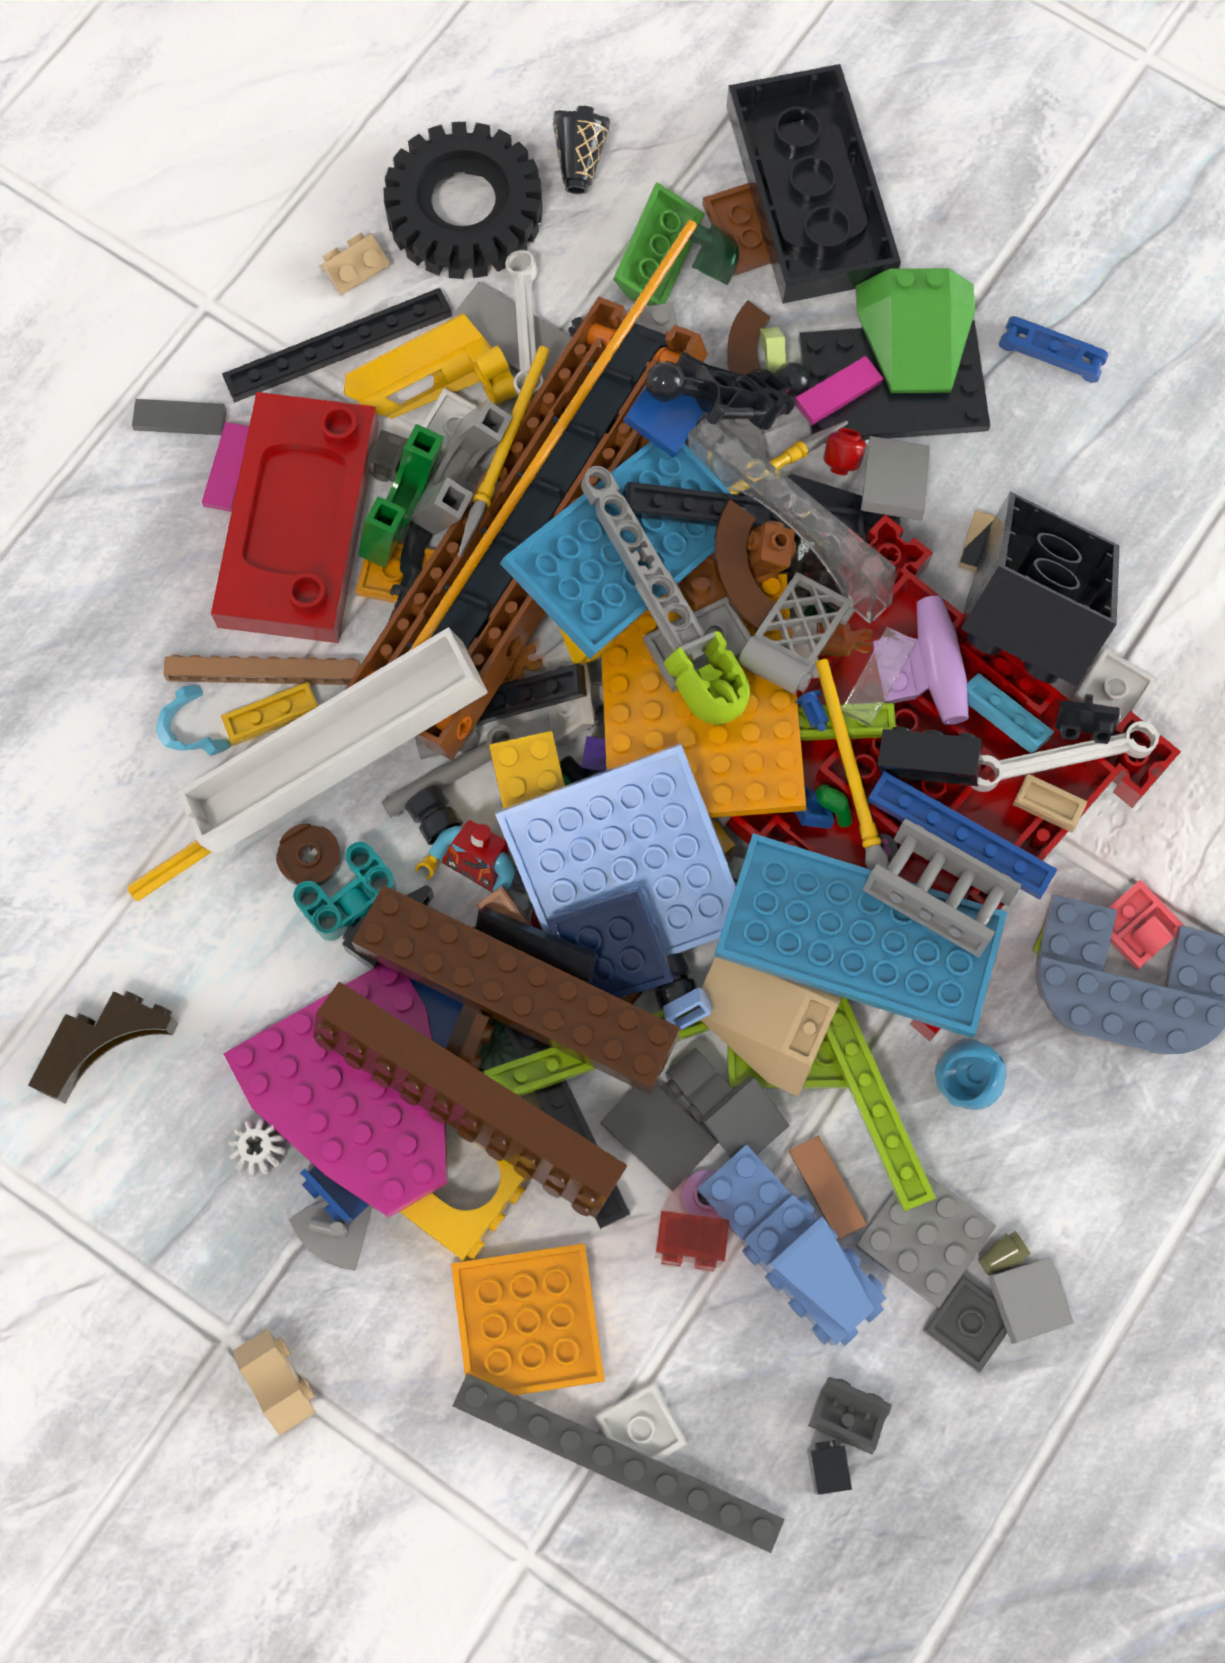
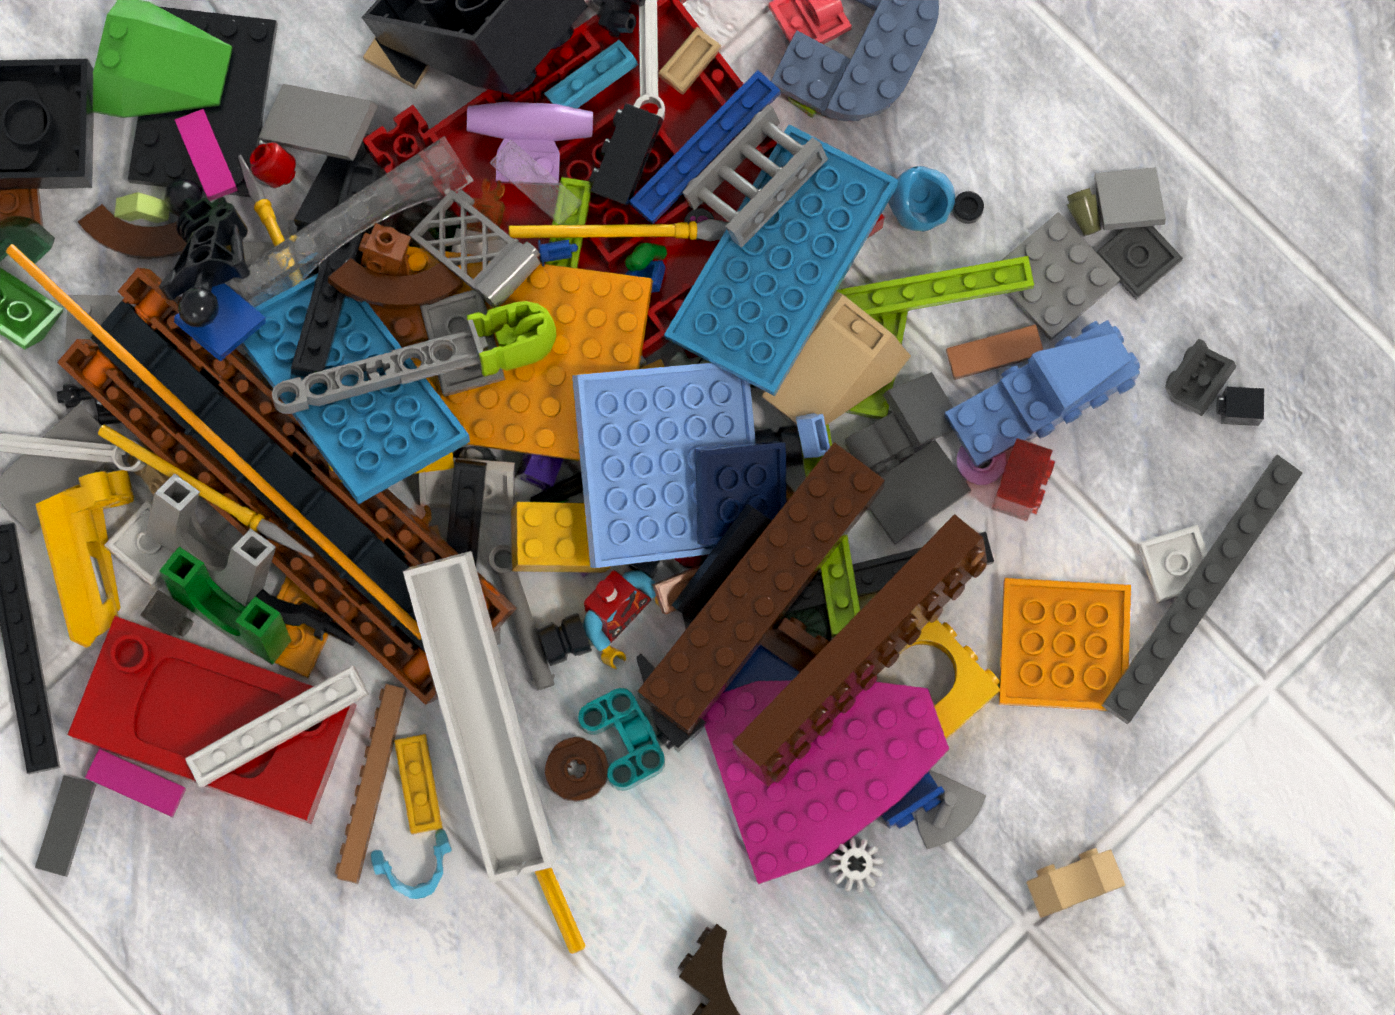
camera: 75 degrees left, 5 degrees up
(292, 564) = (277, 726): none -> white tile
(977, 1129) = (968, 207): none -> black tile

